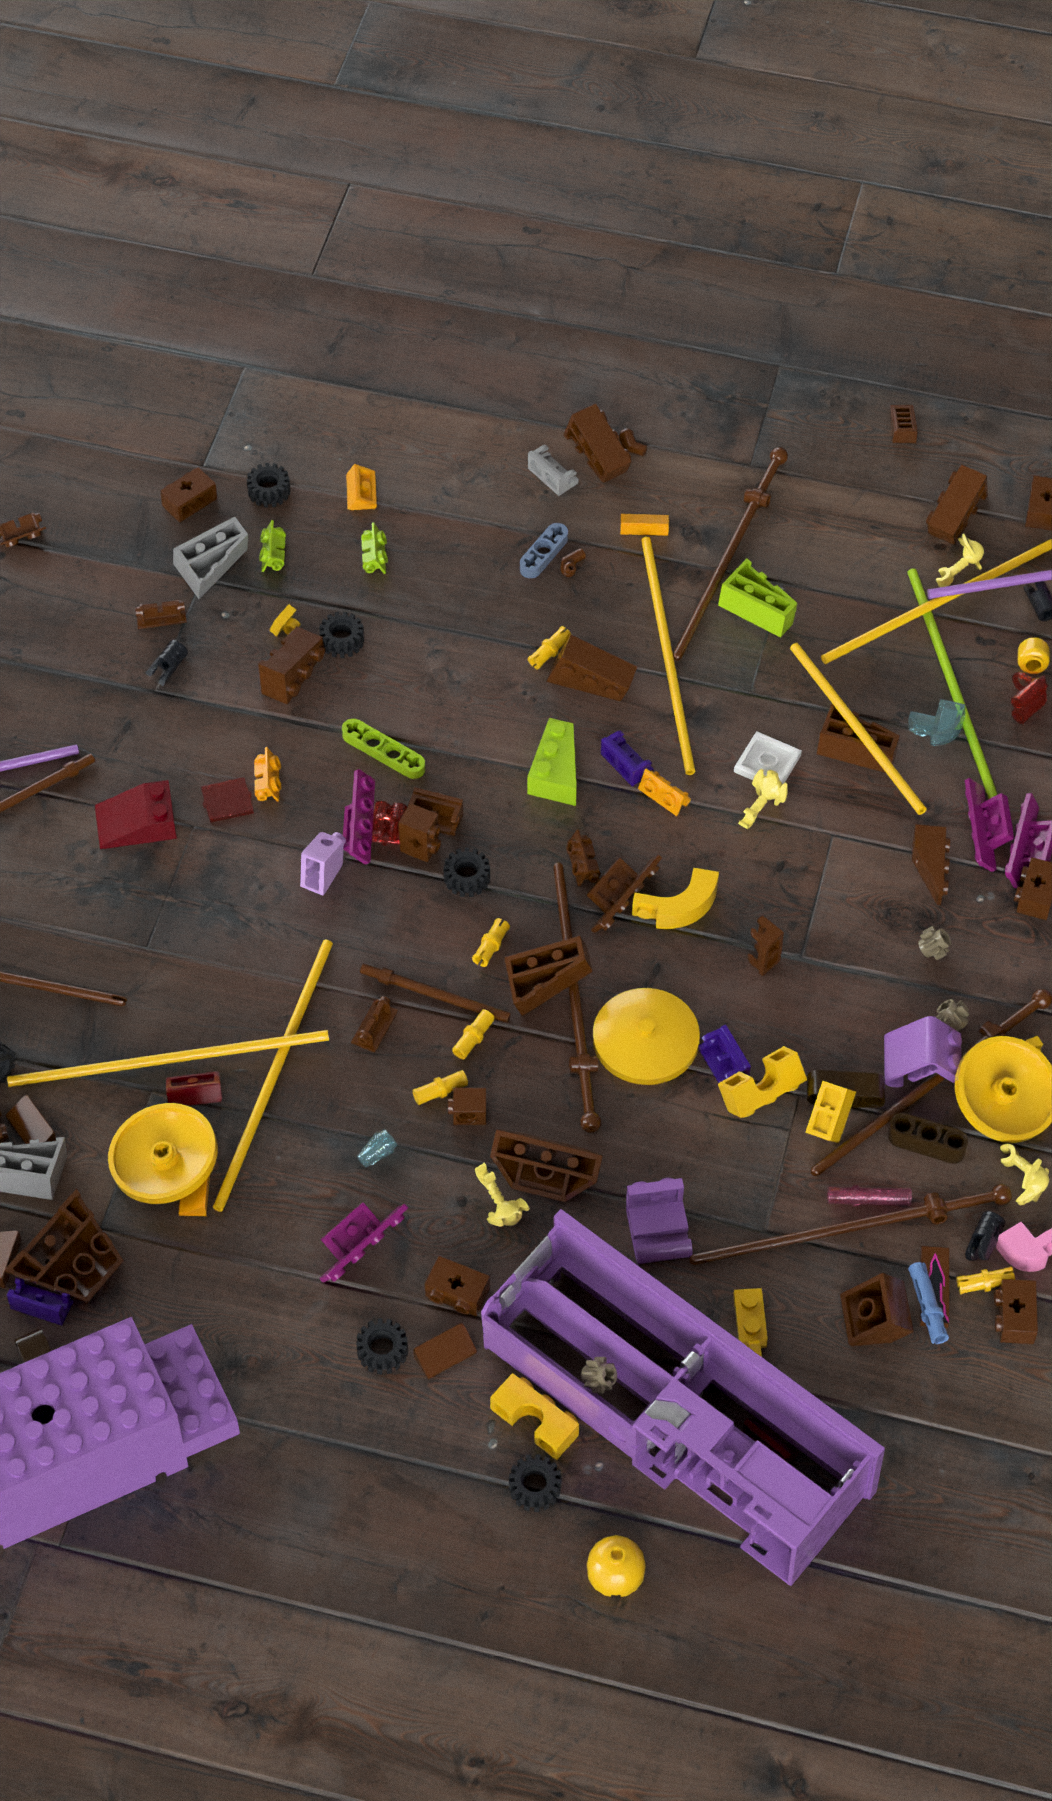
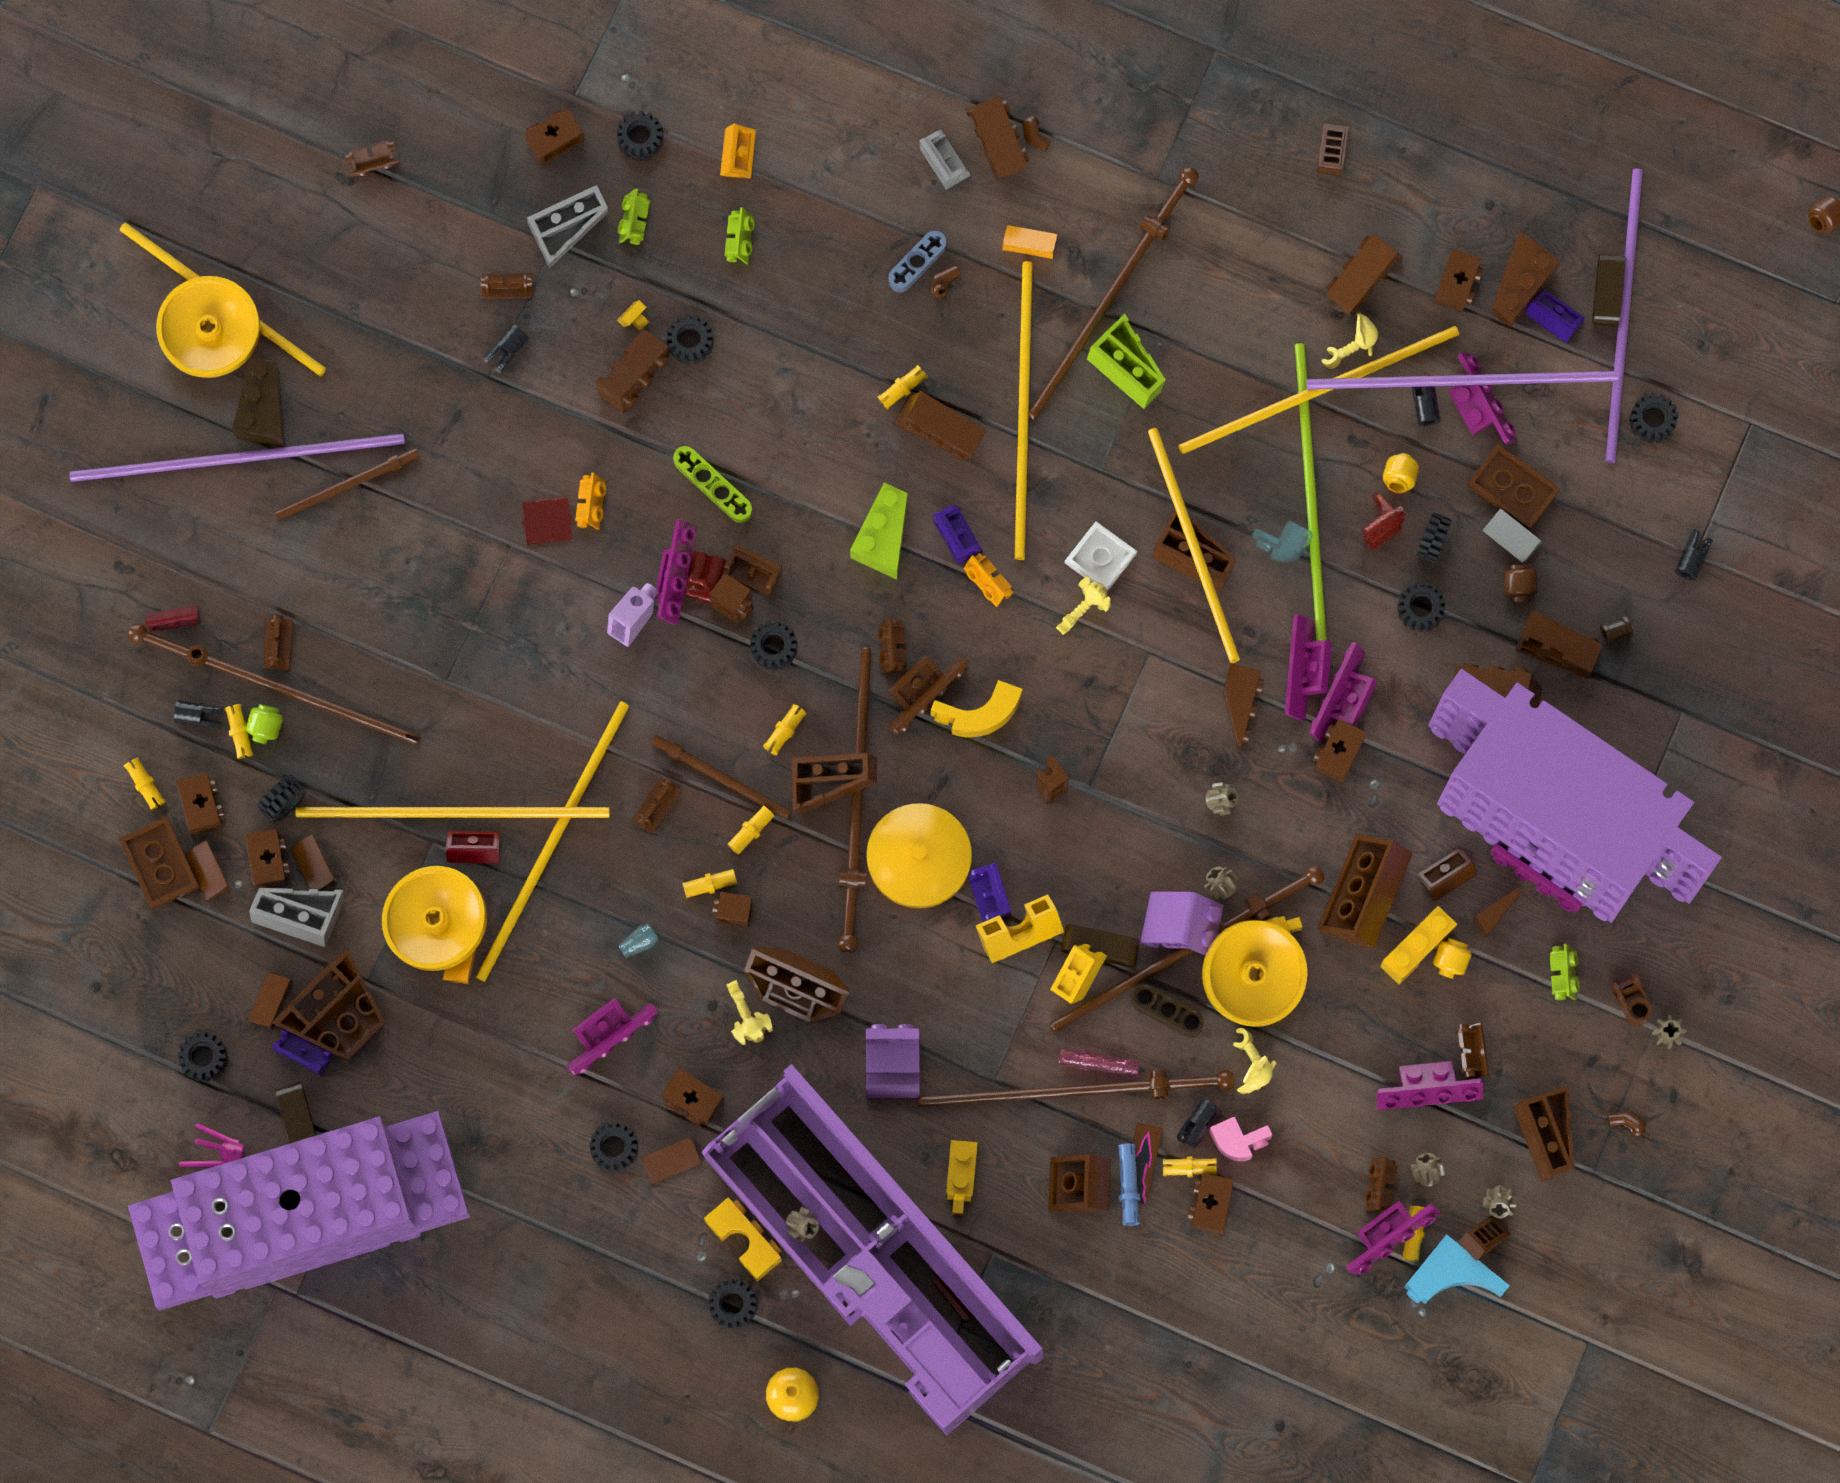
camera: 10 degrees right, 20 degrees up
(136, 816) = (453, 531): dark red slope -> none

